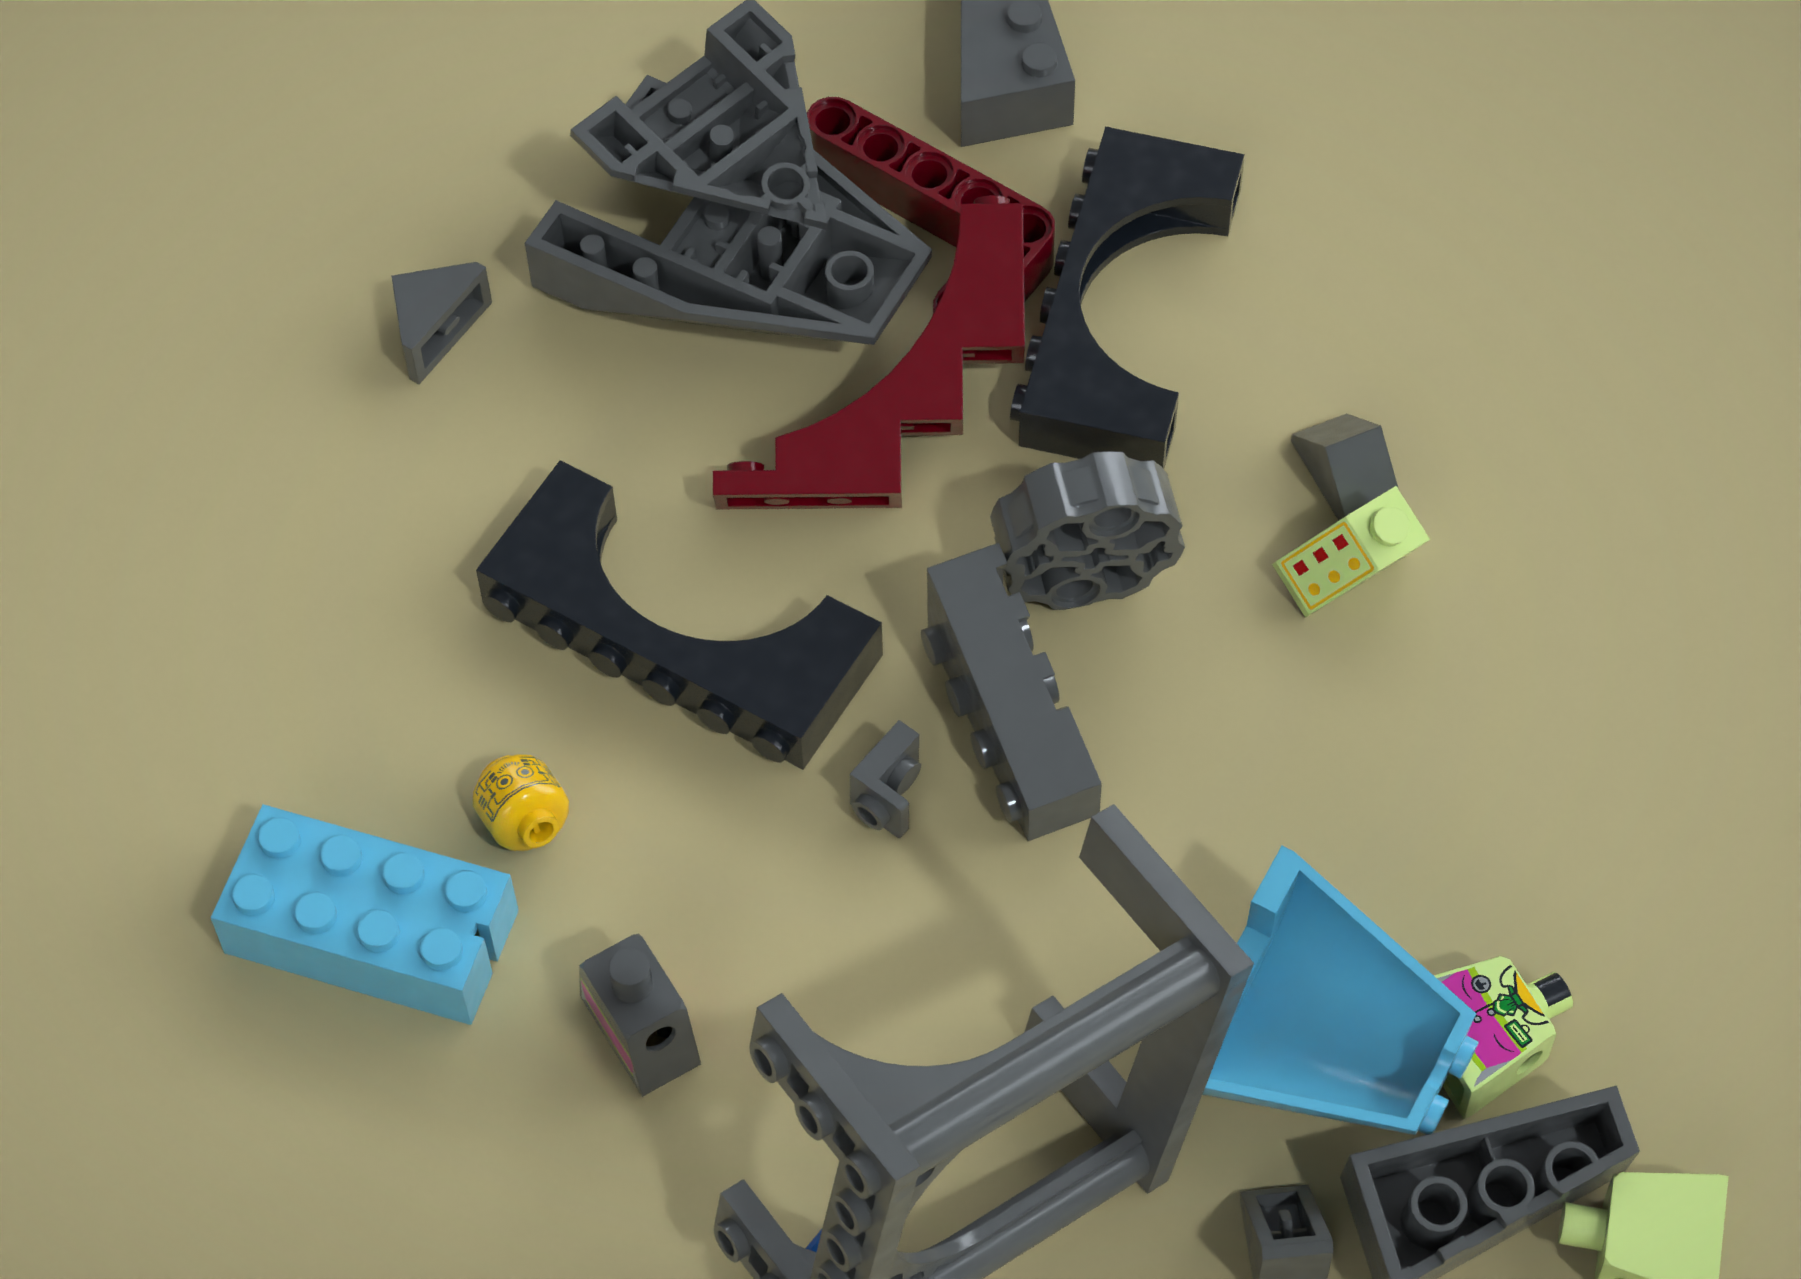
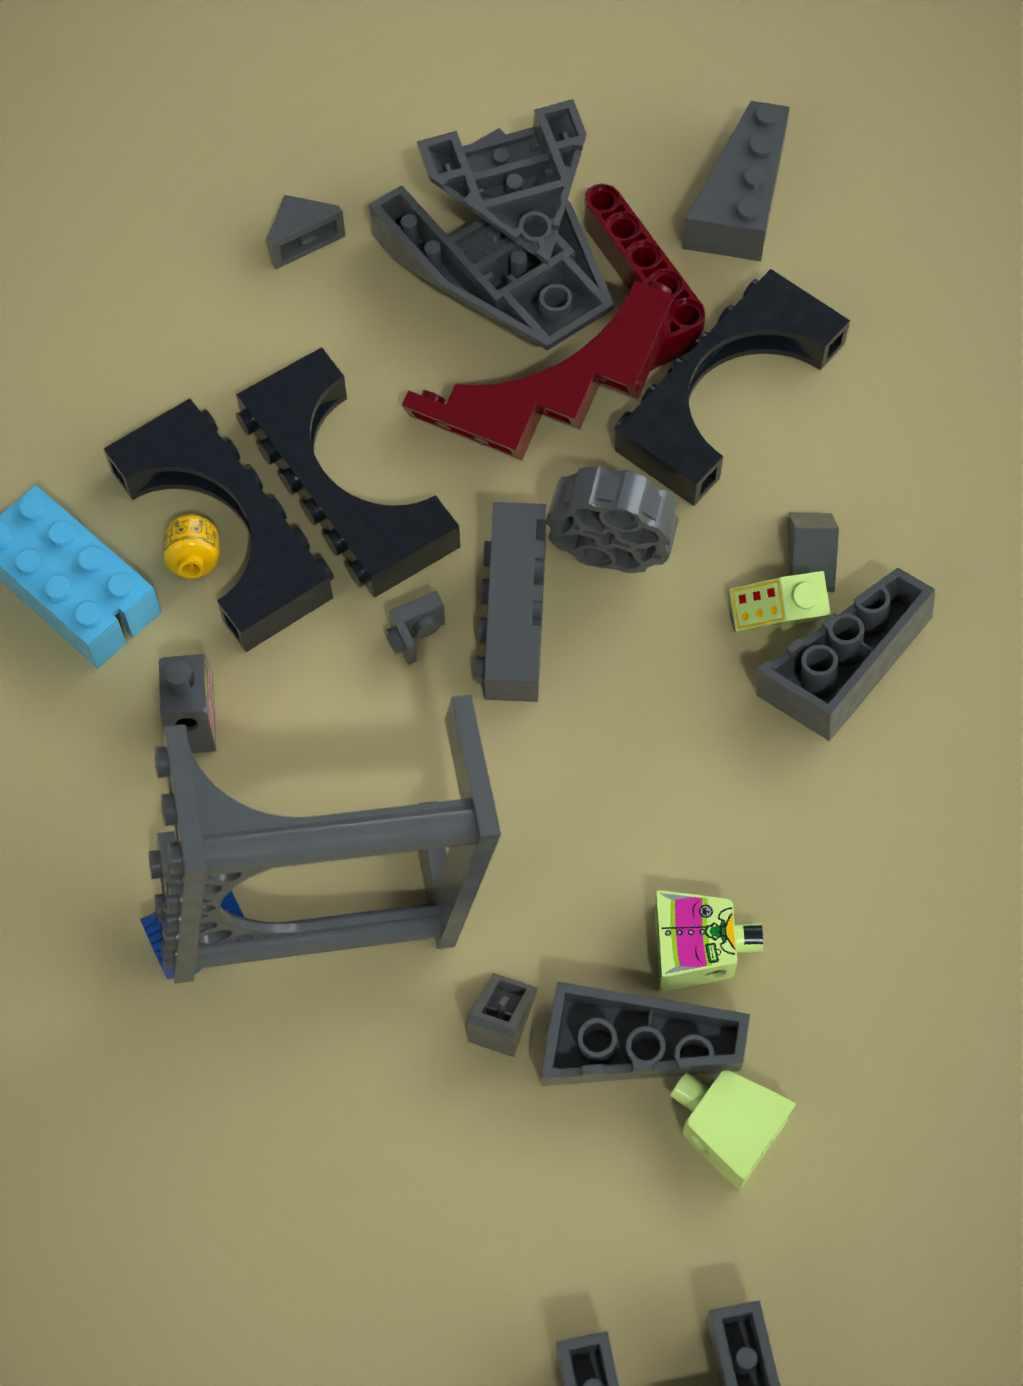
camera: 25 degrees right, 5 degrees up
(448, 679) = (188, 454): none -> black arch
(1337, 1013) = (590, 889): medium azure cone -> none
(1469, 601) = (840, 663): none -> dark grey wedge

